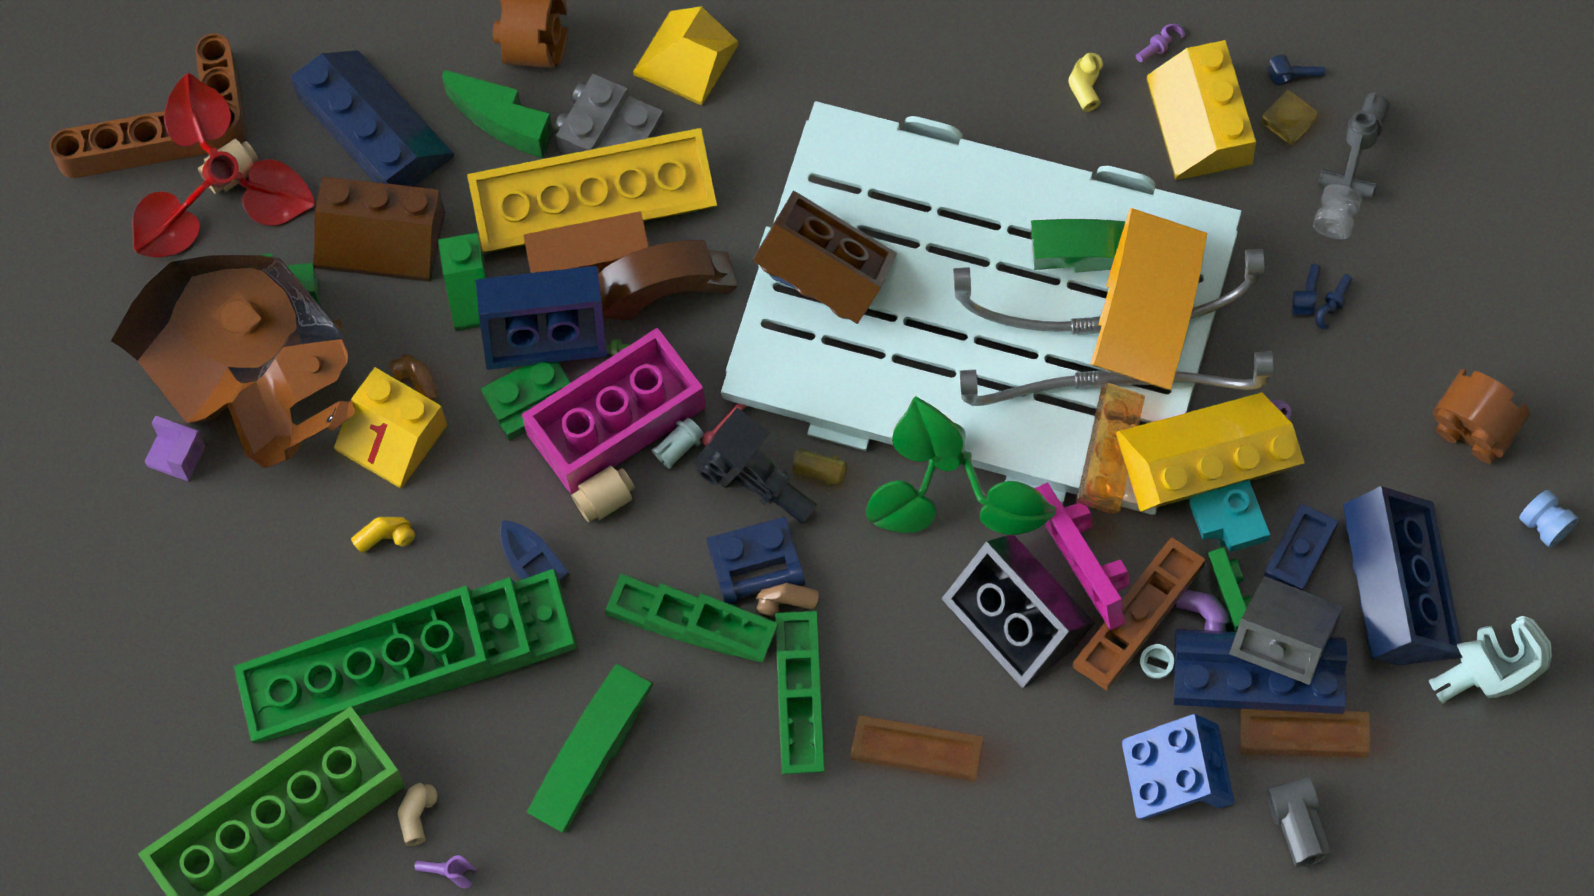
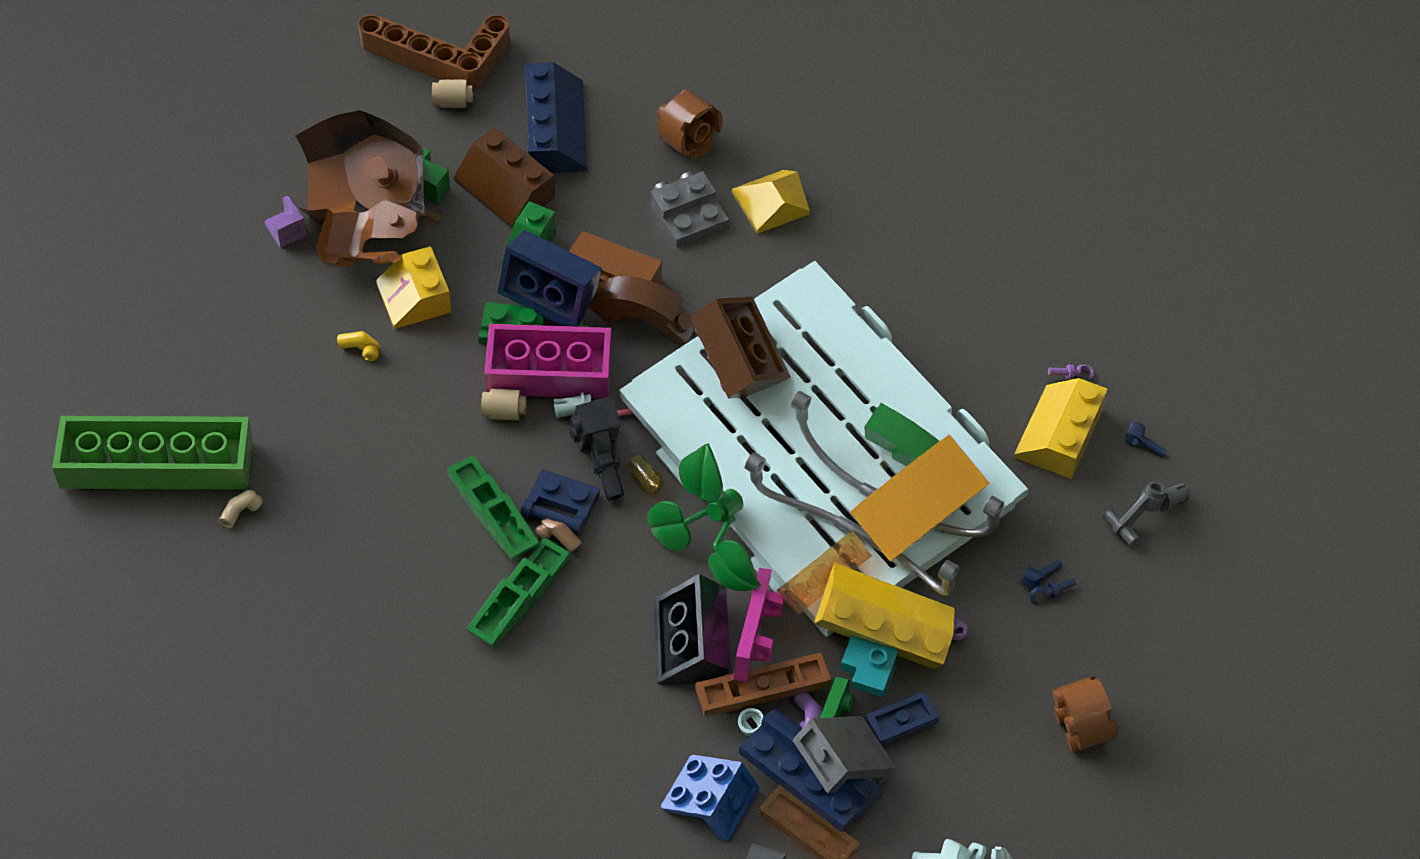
camera: 30 degrees right, 10 degrees down
(202, 114) = (454, 51): red plant -> none
(406, 655) = (315, 418): green slope -> none
(417, 372) = (457, 272): clear orange arm -> none
(452, 869) = (231, 552): medium lavender hand -> none
(500, 113) = (632, 161): green slope -> none
(528, 552) = (429, 413): dark blue plate -> none
(590, 747) = (371, 535): green slope -> none
(647, 175) = (684, 246): yellow plate -> none
(917, 748) = (560, 671): clear orange plate -> none
(1082, 81) = (1004, 361): light yellow arm -> none
(1289, 117) = (1118, 466): clear yellow plate -> none
(1336, 214) = (1101, 536): clear wheel -> none
(1402, 578) = (952, 778): dark blue slope -> none
(1551, 521) = (1080, 809): light blue wheel -> none

